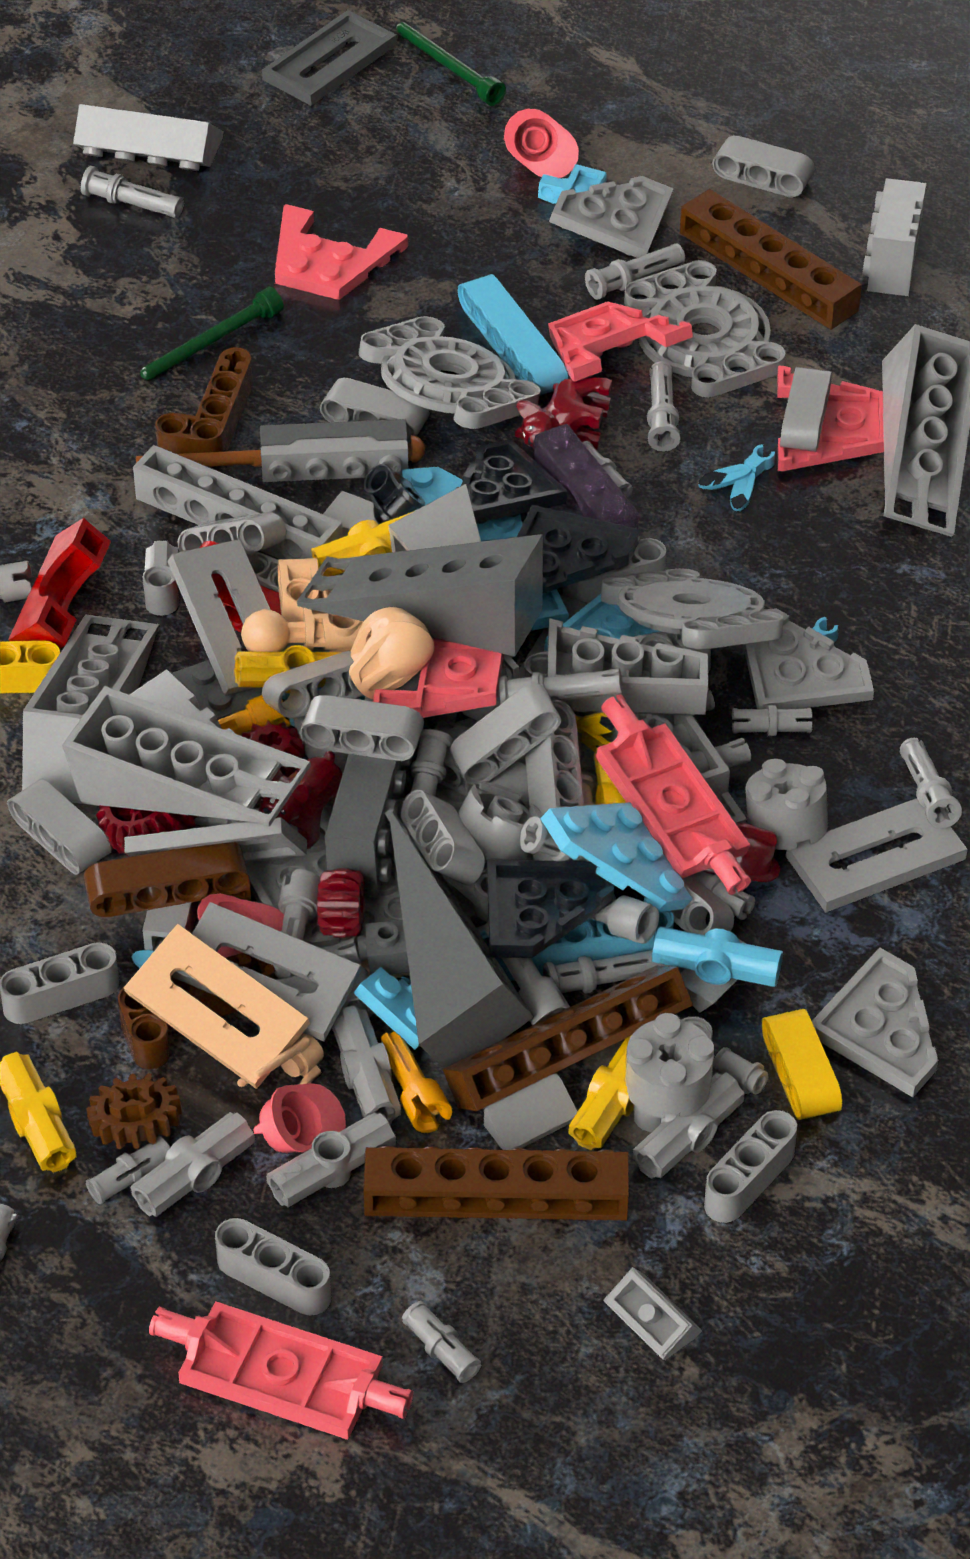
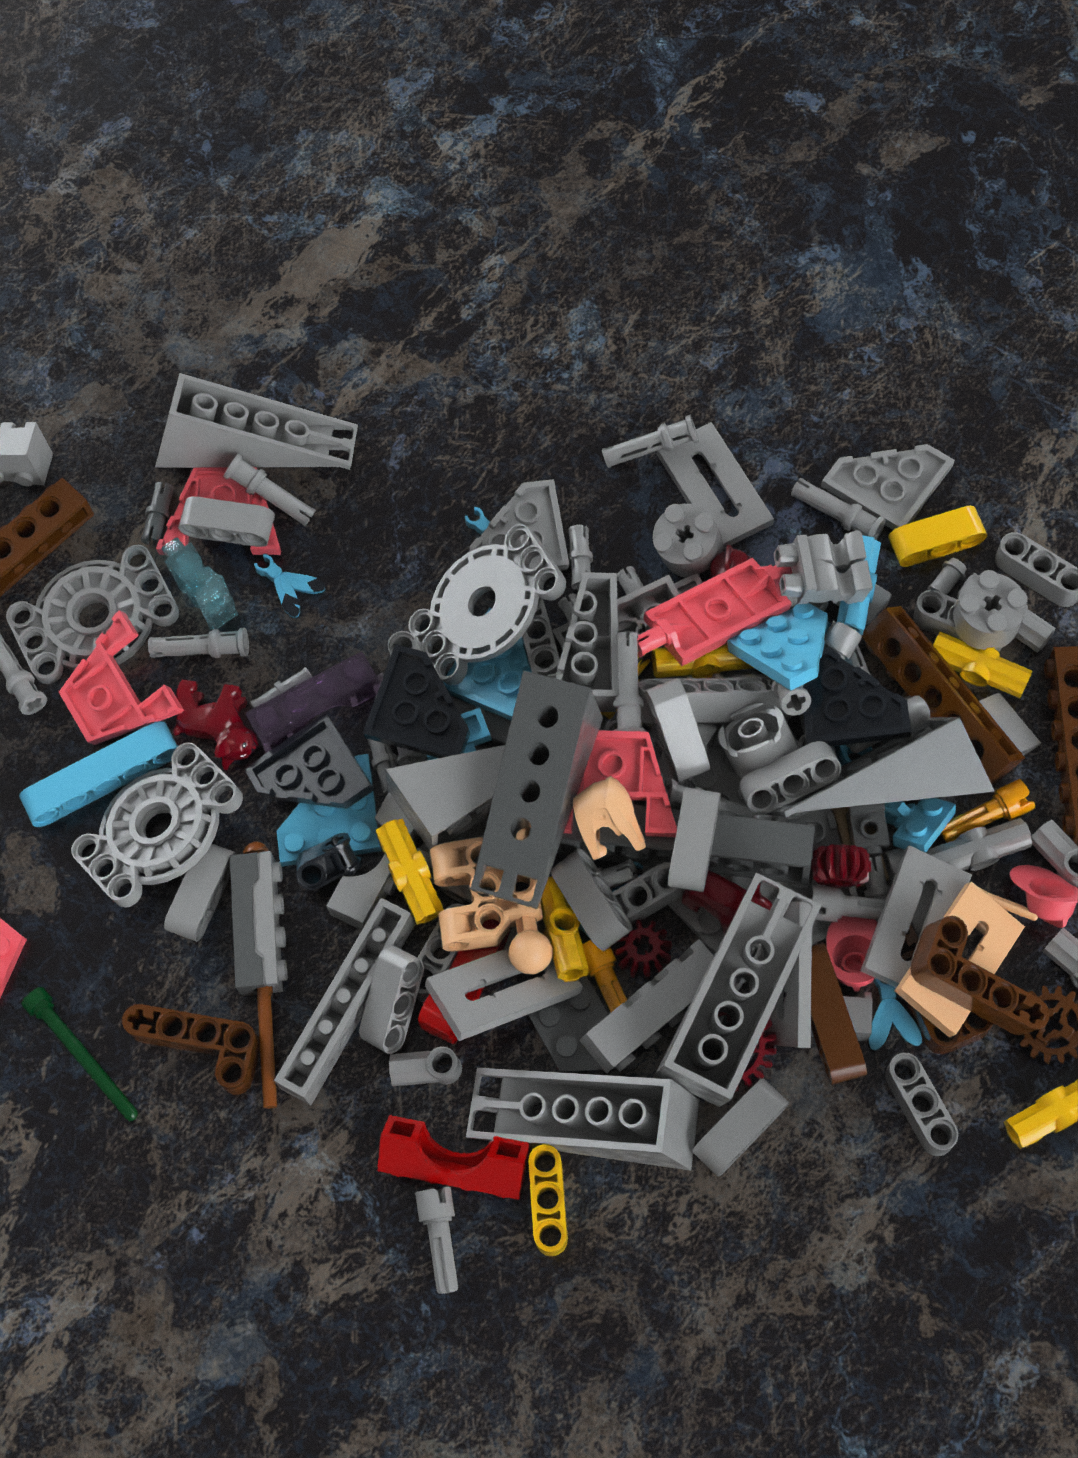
camera: 85 degrees left, 20 degrees up
(178, 1003) = (1016, 1008): none -> reddish brown beam
(716, 874) = (816, 568): none -> light grey hips
(732, 396) = (200, 583): none -> clear light blue hips
(831, 976) = (849, 515): none -> light grey pin
(840, 371) = (157, 513): none -> dark grey pin
(857, 433) = (256, 482): none -> light grey pin

